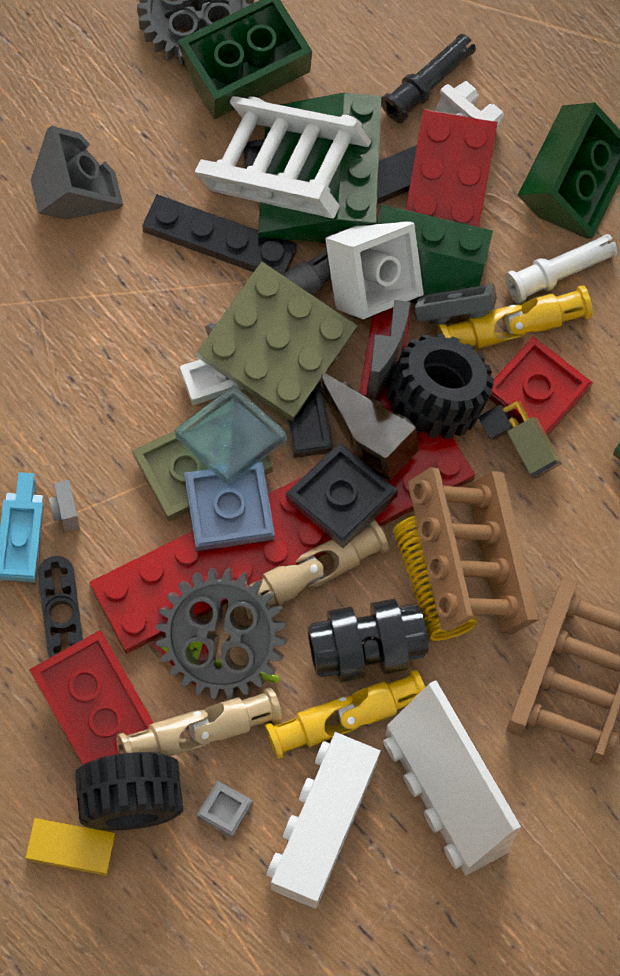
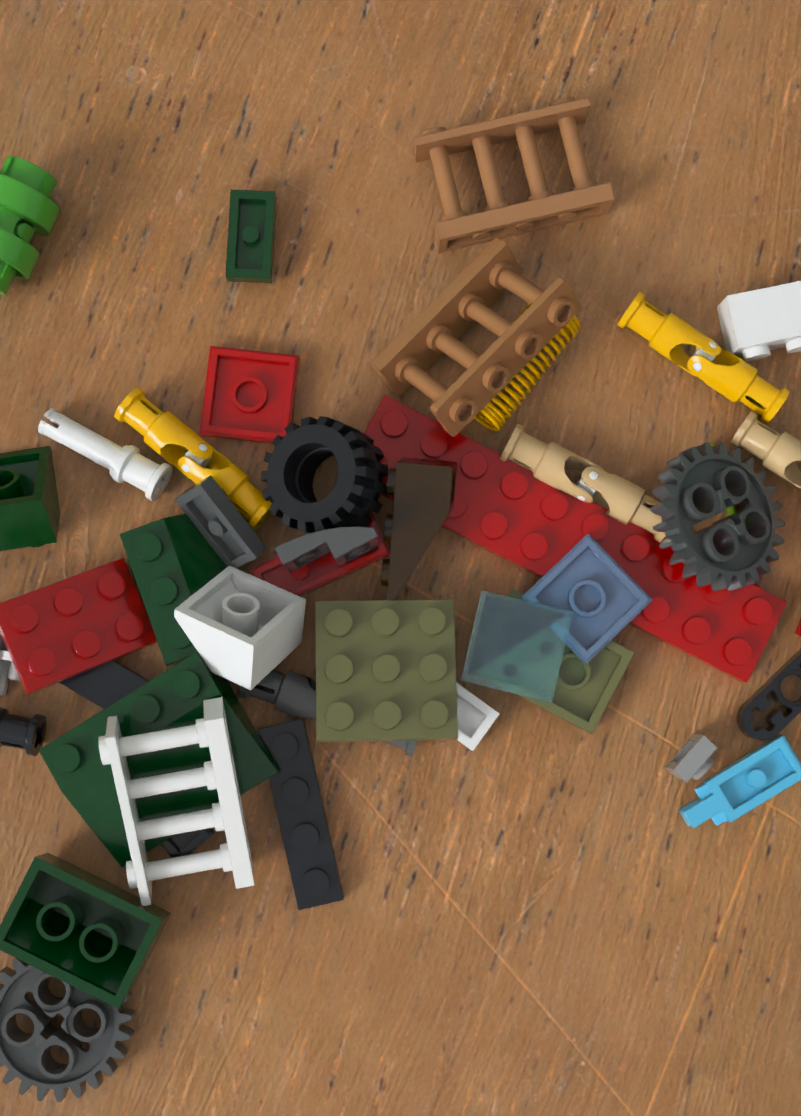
camera: 120 degrees left, 15 degrees up
(70, 180) = (341, 1010): dark grey slope -> none
(310, 427) = (445, 579): black tile -> none
(338, 641) = (616, 367): black piece -> none
(341, 495) = (502, 498): black tile -> none
(451, 781) = (716, 211): white slope -> none
(527, 437) = (314, 368): piece -> none

